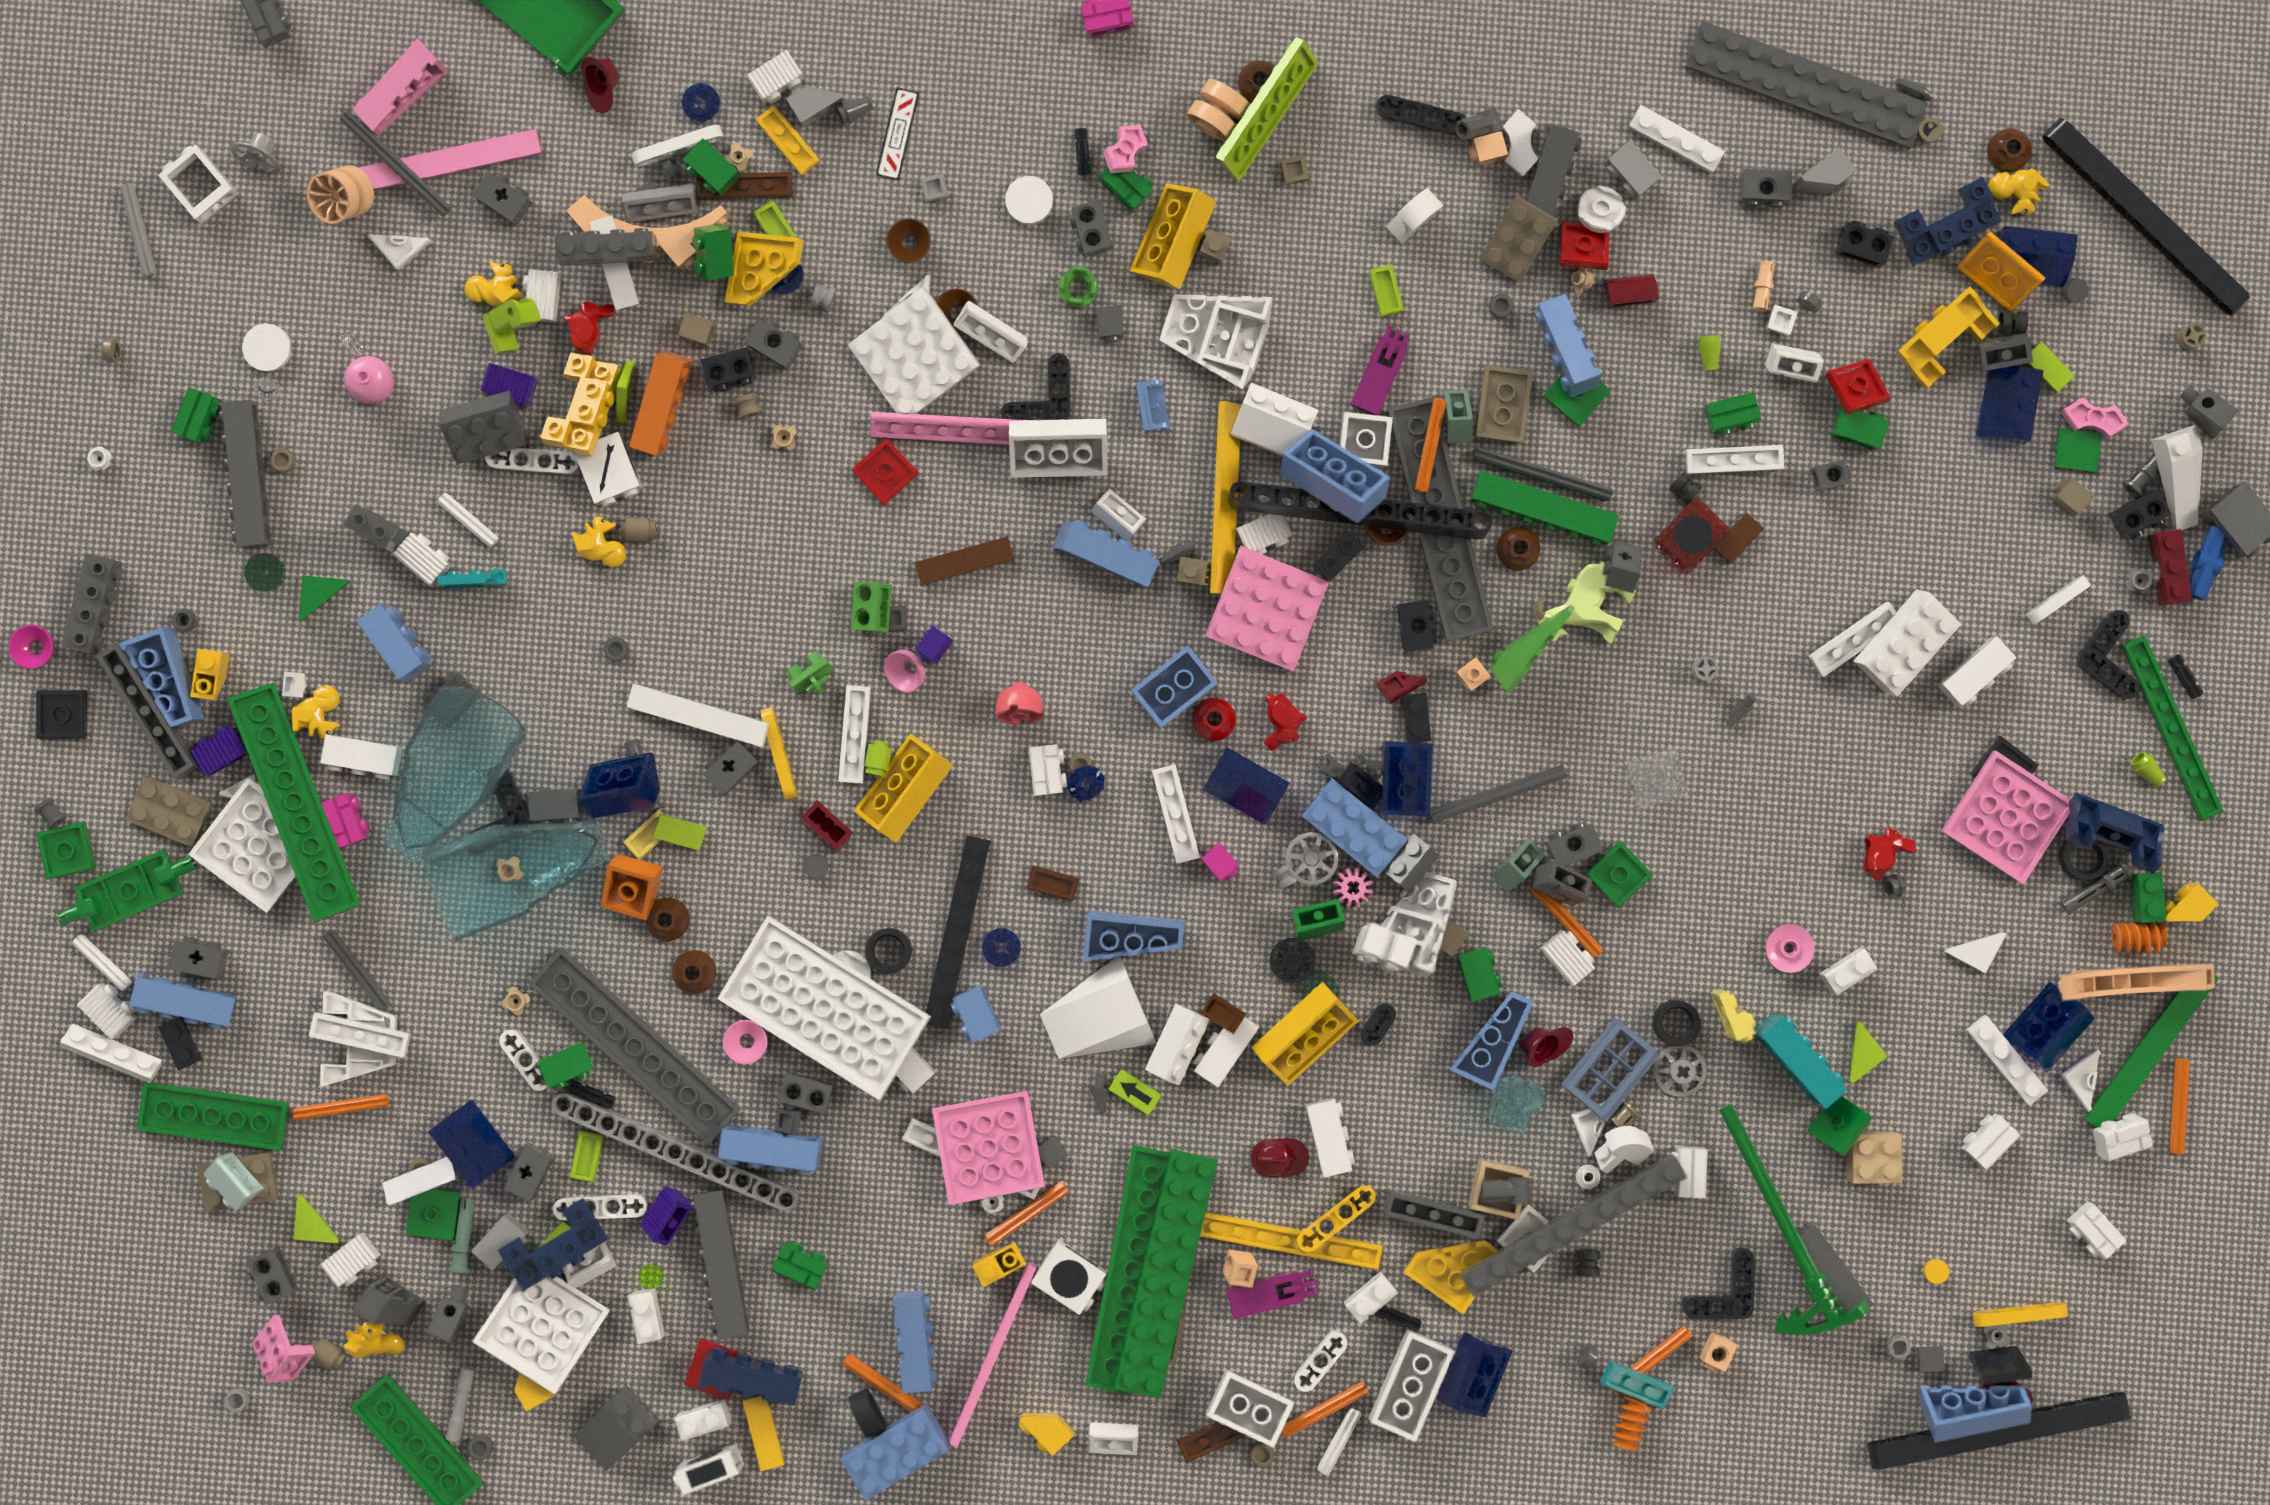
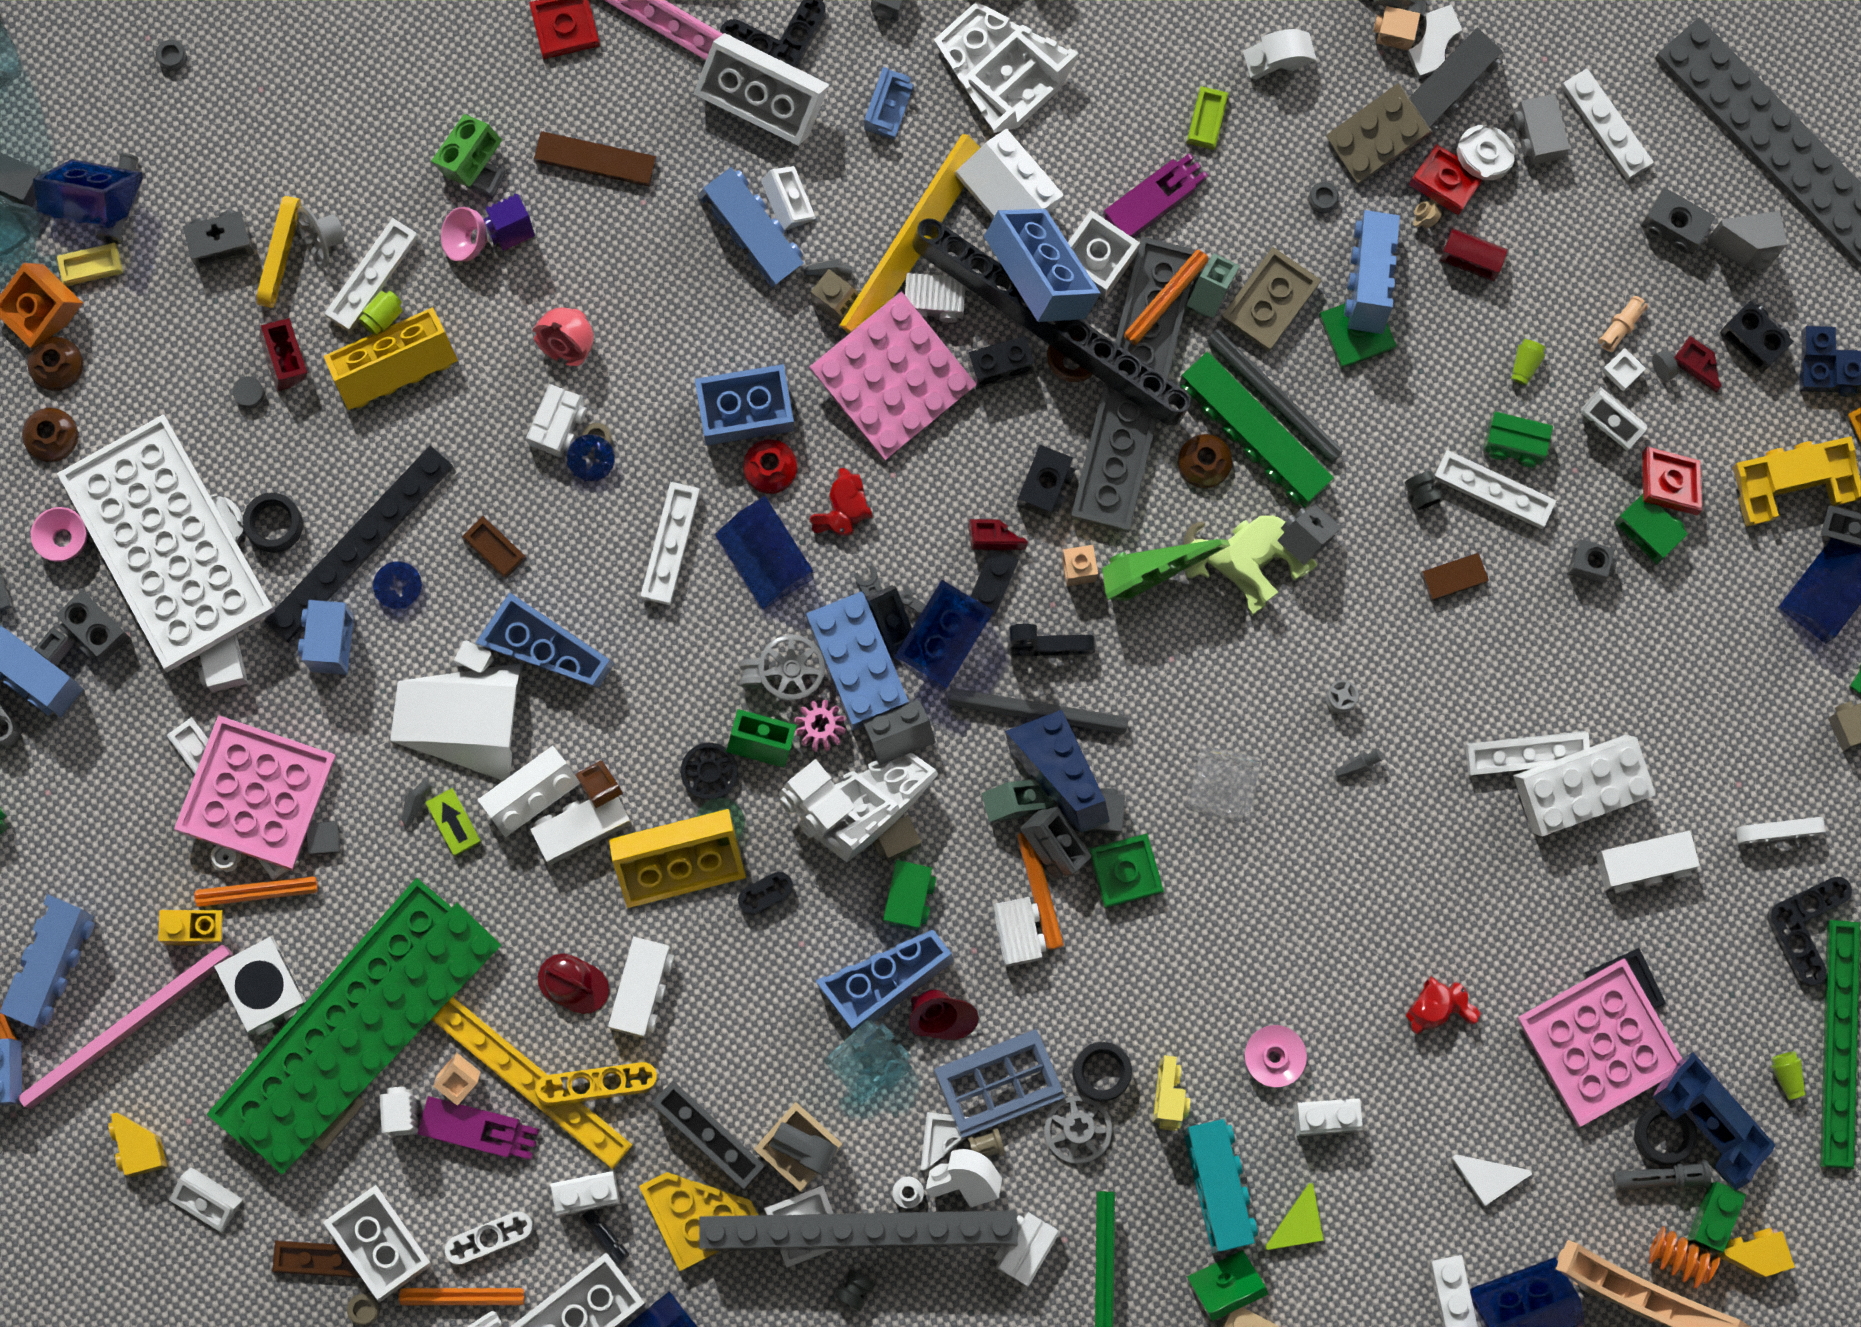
camera: 25 degrees right, 10 degrees down
(679, 832) = (122, 276): lime tile -> none
(698, 715) = (216, 165): white tile -> none
(804, 723) = (323, 233): none -> light grey wheel
(811, 678) = (360, 189): bright green hips -> none
(1085, 971) = (473, 657): none -> white slope
(1215, 1313) = (399, 1112): none -> white brick
(1220, 862) = (688, 616): dark pink brick -> none
(1479, 744) = (1023, 642): none -> black beam
(1534, 827) = (1057, 763): none -> dark blue wedge
(1691, 535) = (1402, 544): clear red brick -> none
(1831, 284) = (1699, 363): none -> dark red tile
(1894, 885) = (1431, 1051): dark grey plate -> none

